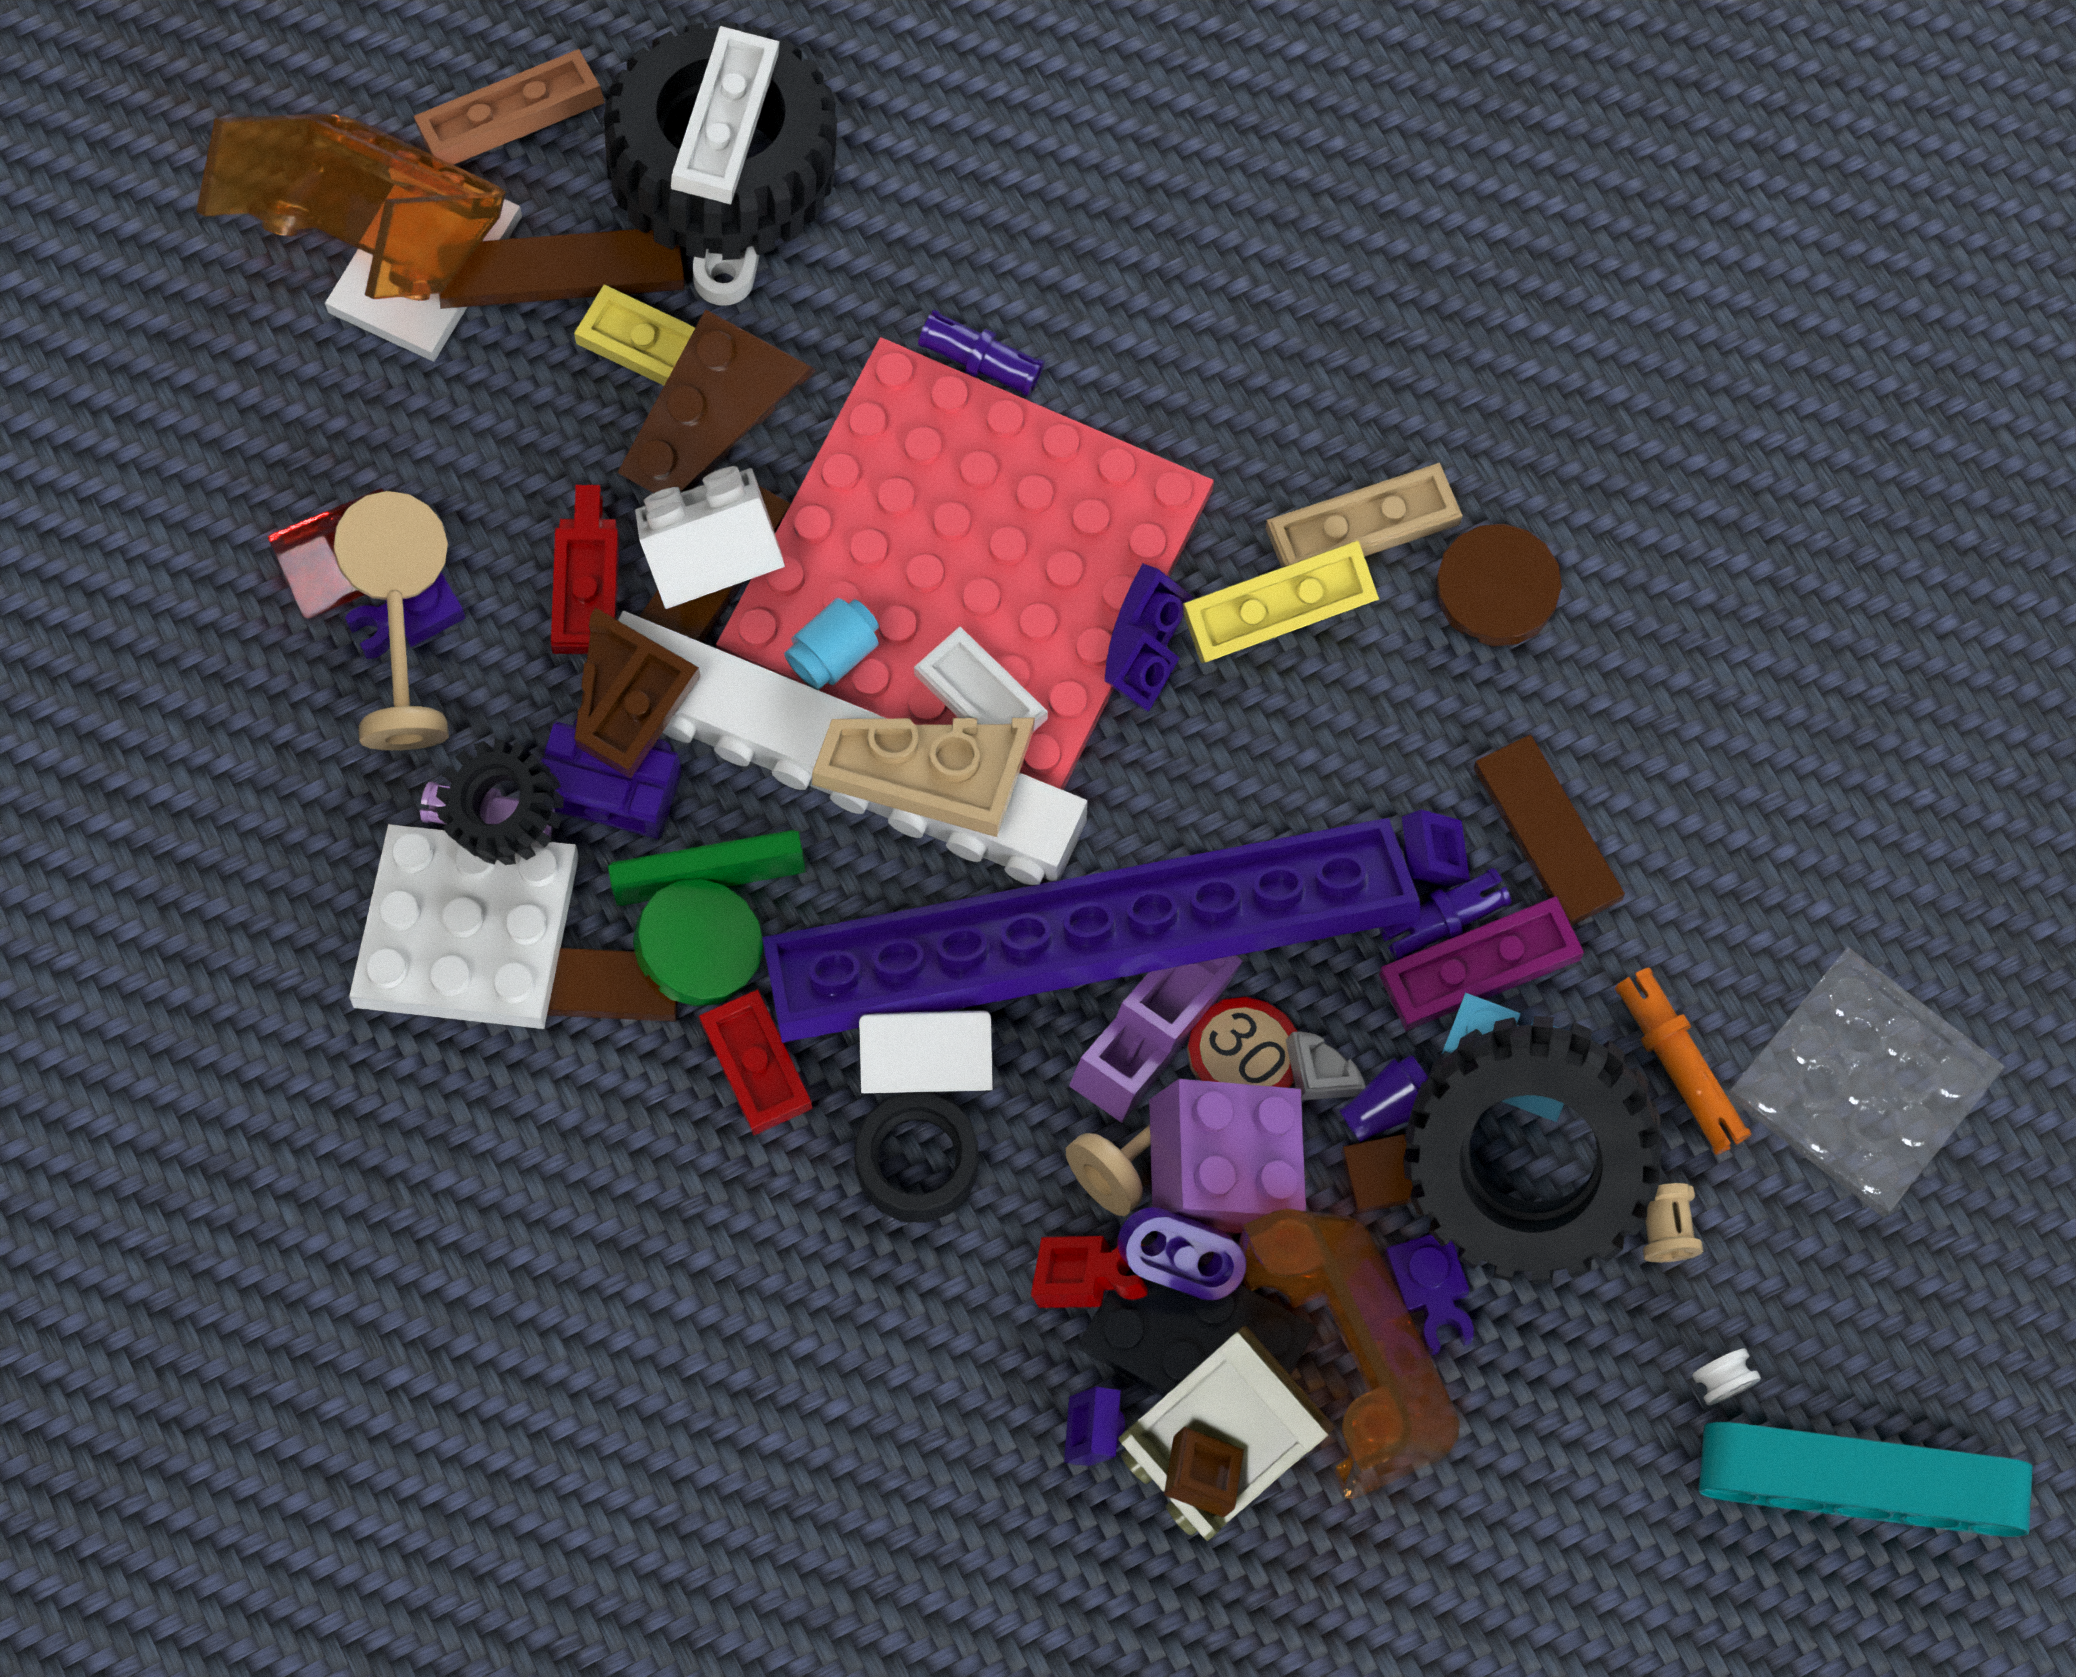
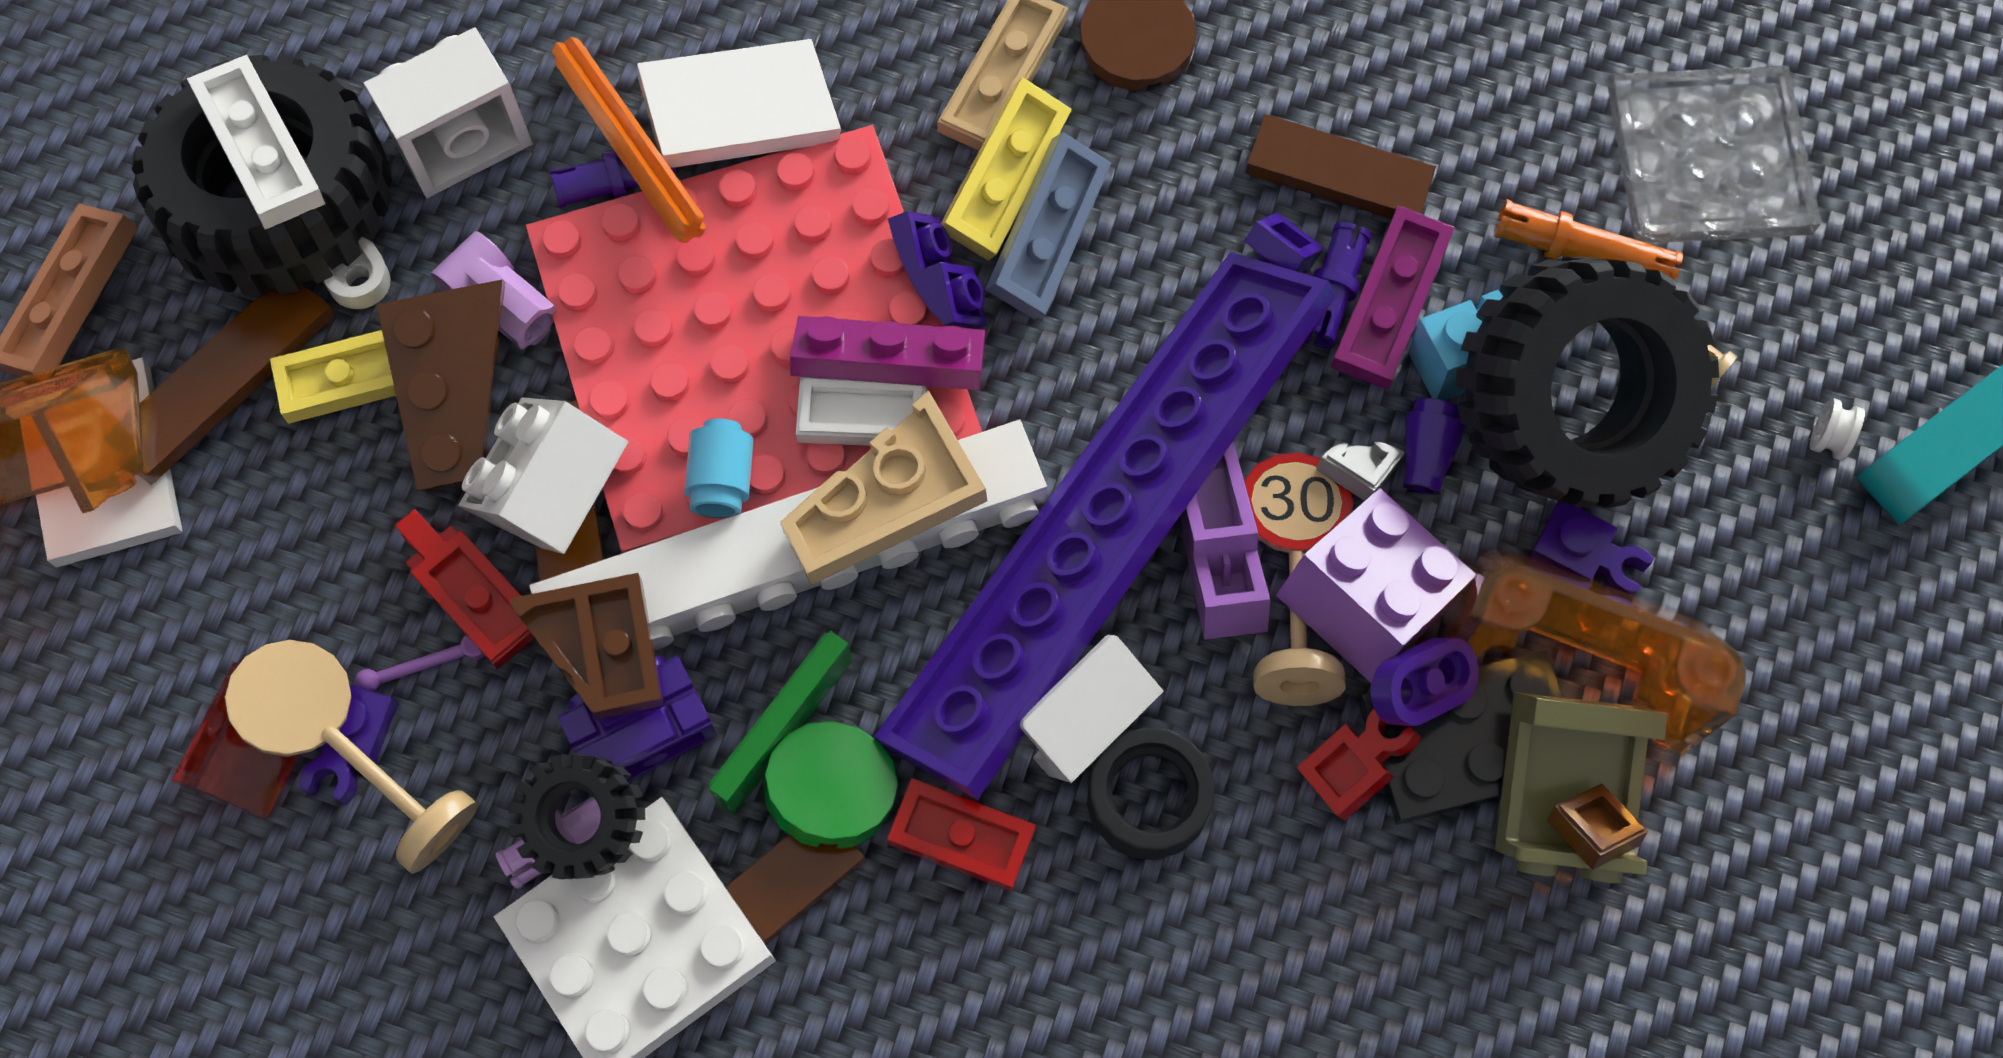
camera: 45 degrees left, 0 degrees up
(461, 584) = (371, 680): none -> medium lavender hinge
(813, 340) = (524, 312): none -> lavender piece
(897, 203) = (449, 111): none -> white brick
(1011, 335) = (629, 140): none -> orange axle
(1040, 665) = (887, 352): none -> magenta plate
(1093, 1426) = (1476, 870): dark purple plate -> none
(1125, 375) = (738, 103): none -> white tile
(1267, 675) = (1048, 226): none -> sand blue plate
(1377, 1174) = (1474, 503): reddish brown tile -> none

